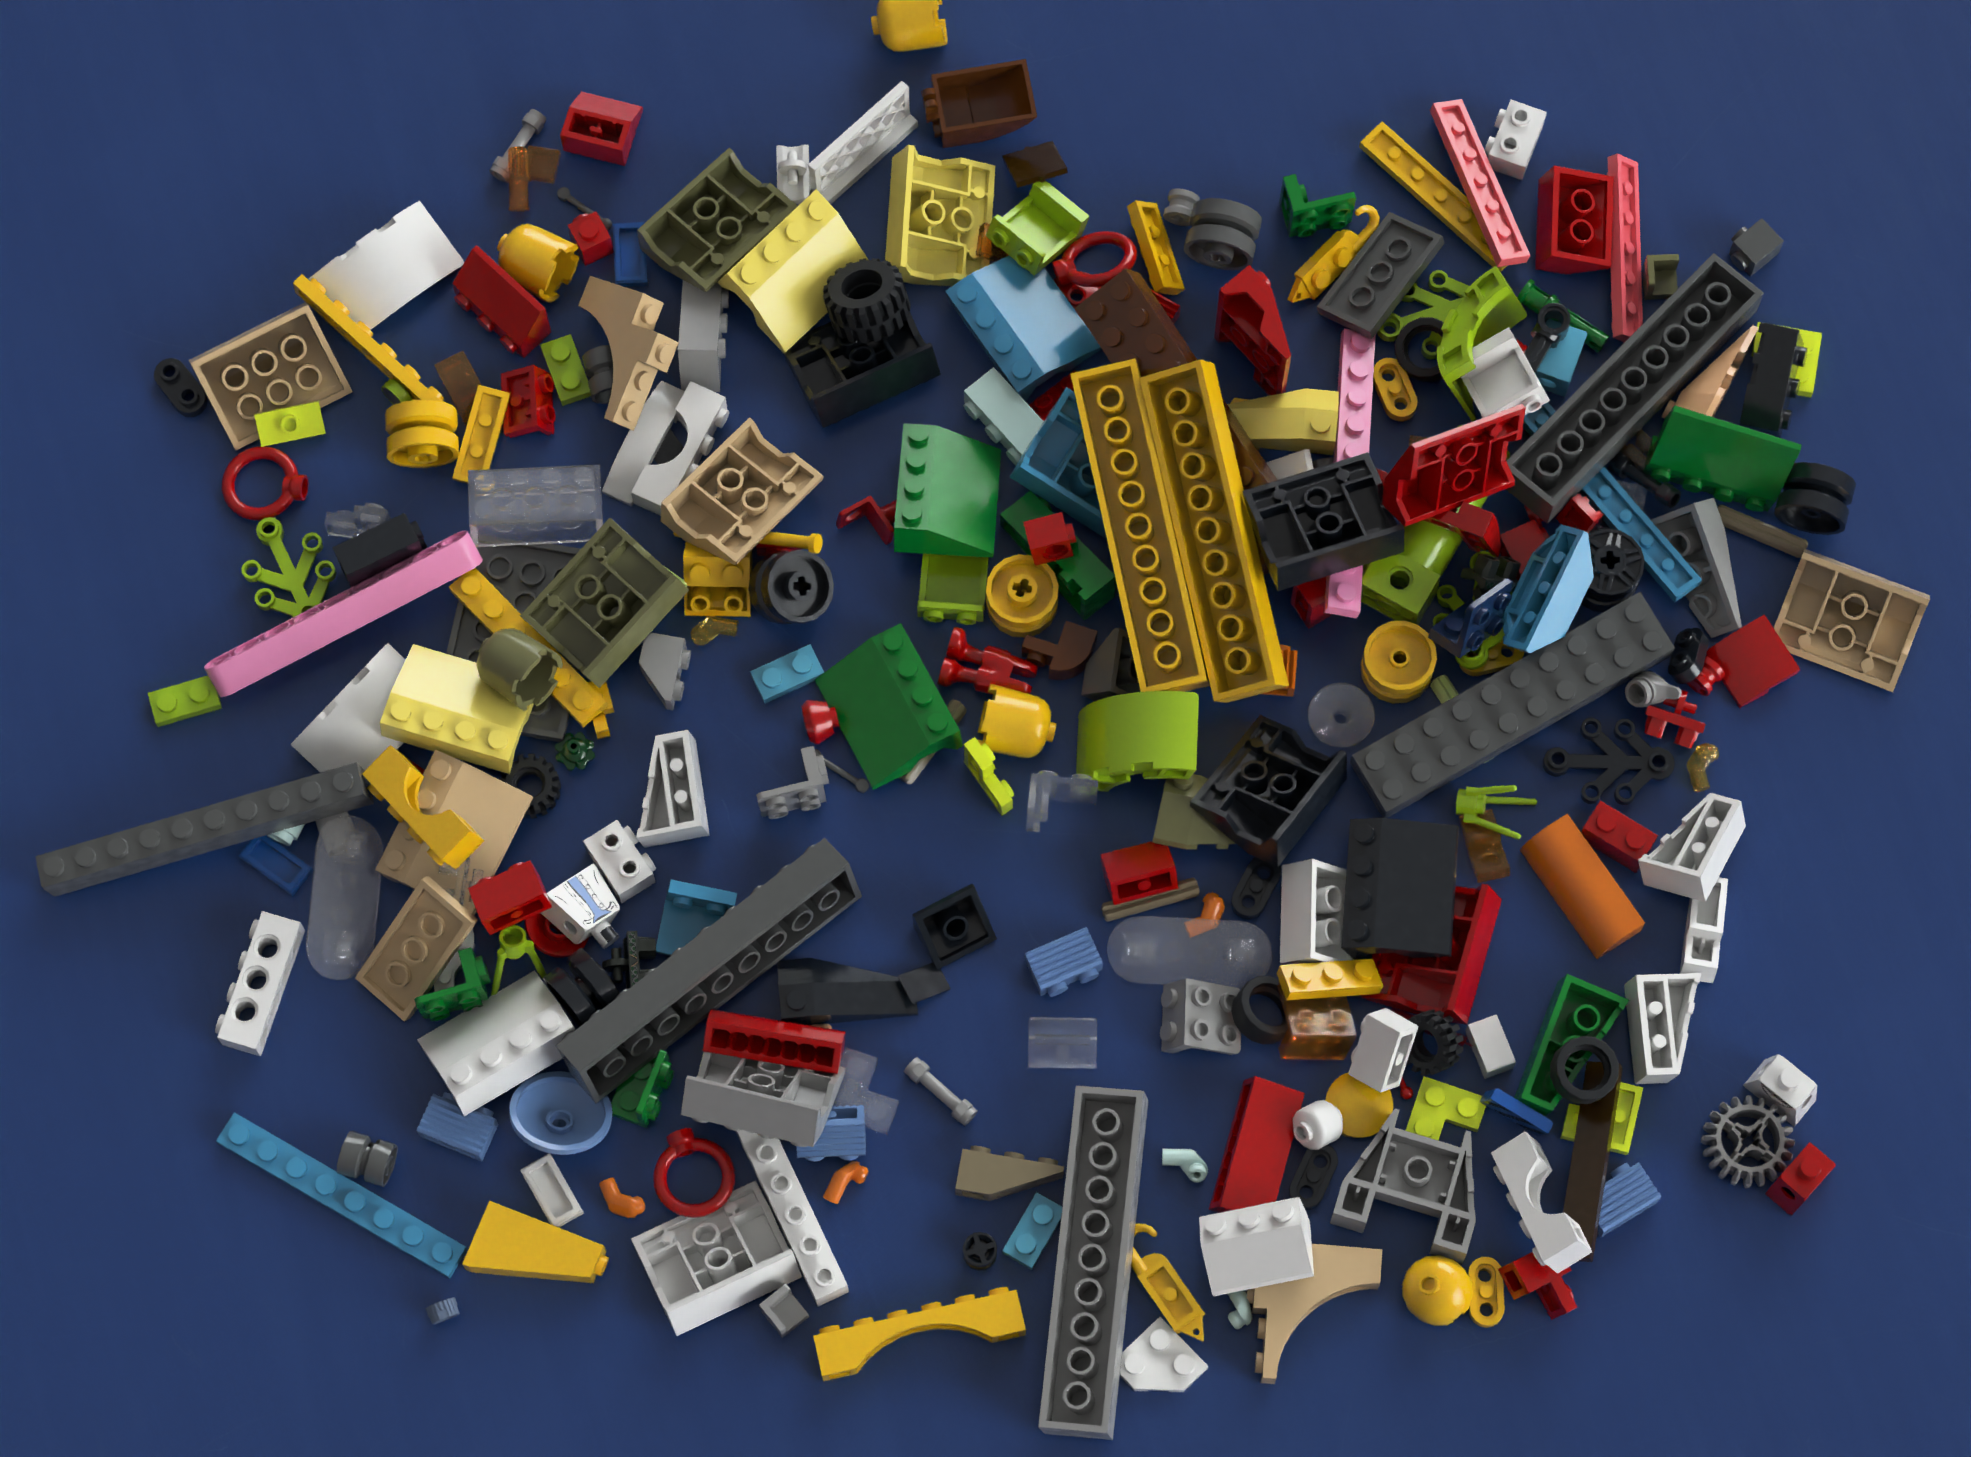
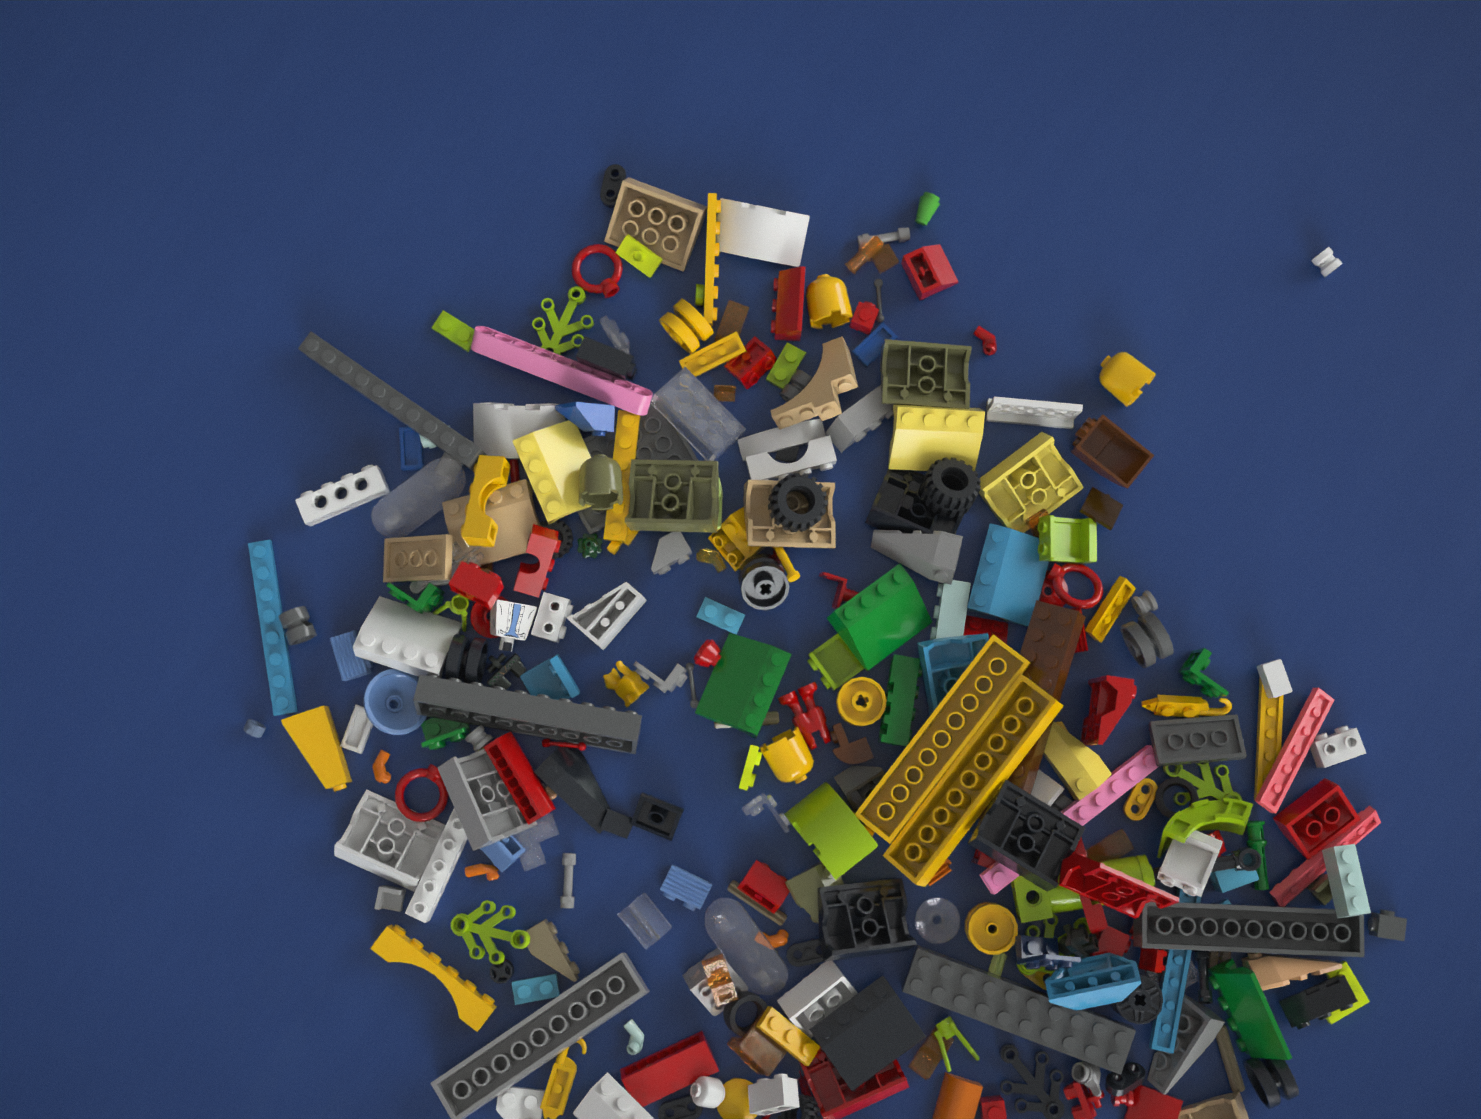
camera: 50 degrees right, 10 degrees up
(427, 621) = (589, 416): none -> slope
(527, 71) = (926, 208): none -> bright green cone
(537, 456) = (725, 393): none -> clear orange tile
(556, 840) = (532, 577): none -> arch
(686, 1052) = (478, 738): none -> light grey wheel
(738, 130) = (988, 340): none -> red arm
(741, 445) = (810, 490): none -> black tyre
(774, 833) = (628, 687): none -> yellow animal
(793, 172) = (988, 388): white hips -> none
(798, 944) = (546, 743): none -> red hinge
(916, 387) = (927, 554): none -> light grey wedge
(918, 1225) = (487, 931): none -> lime plant
(1050, 538) = (898, 694): red brick -> none
(1200, 1001) = (719, 980): none -> clear orange slope
(1382, 138) = (1274, 678): none -> white piece
(1664, 241) = (1346, 881): none -> light aqua brick

